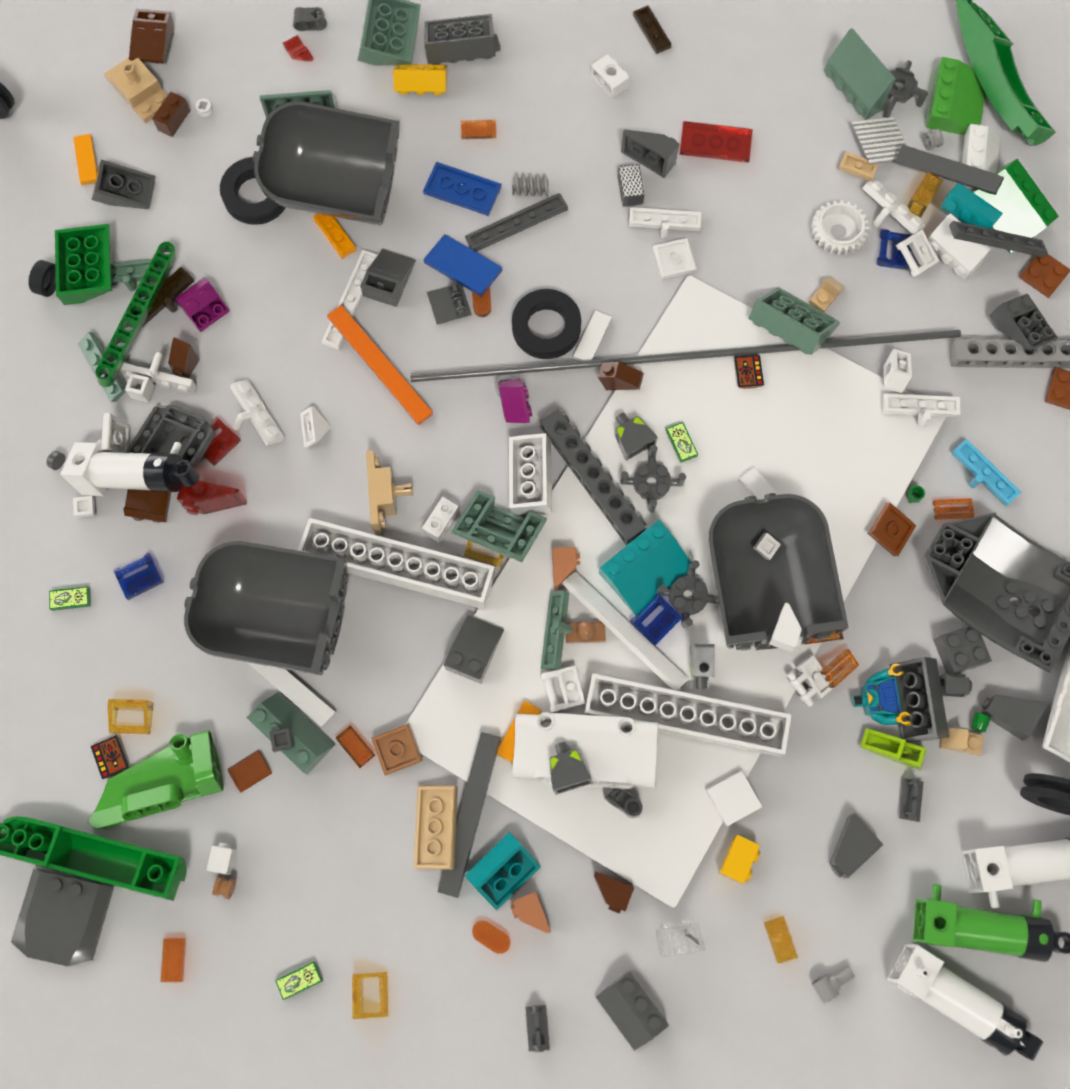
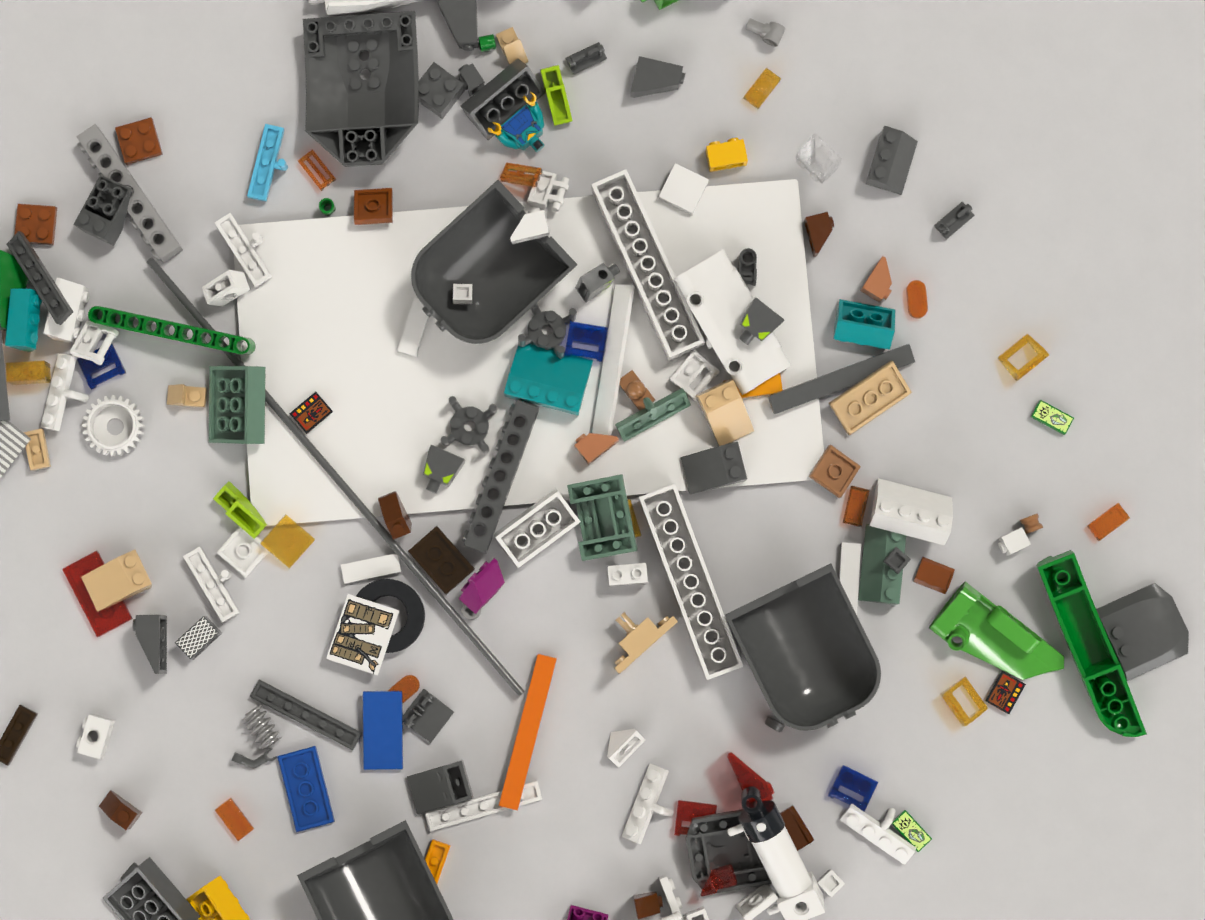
camera: 130 degrees left, 10 degrees up
(88, 570) = (878, 832): none -> white plate
(155, 423) = (719, 879): none -> clear red slope
(312, 787) = (912, 512): none -> white slope
(514, 690) = (725, 412): none -> tan slope
(518, 159) = (238, 758): none -> dark grey arm
(543, 59) = (120, 810): none -> reddish brown slope
(545, 294) = (362, 634): none -> sticker
(560, 390) = (441, 560): none -> dark brown plate
(658, 291) = (287, 541): none -> clear yellow tile
(681, 442) = (417, 425): tile -> none
(708, 272) = (240, 509): none -> lime slope
(715, 157) = (116, 580): none -> tan slope
(888, 311) = (163, 326): none -> green beam

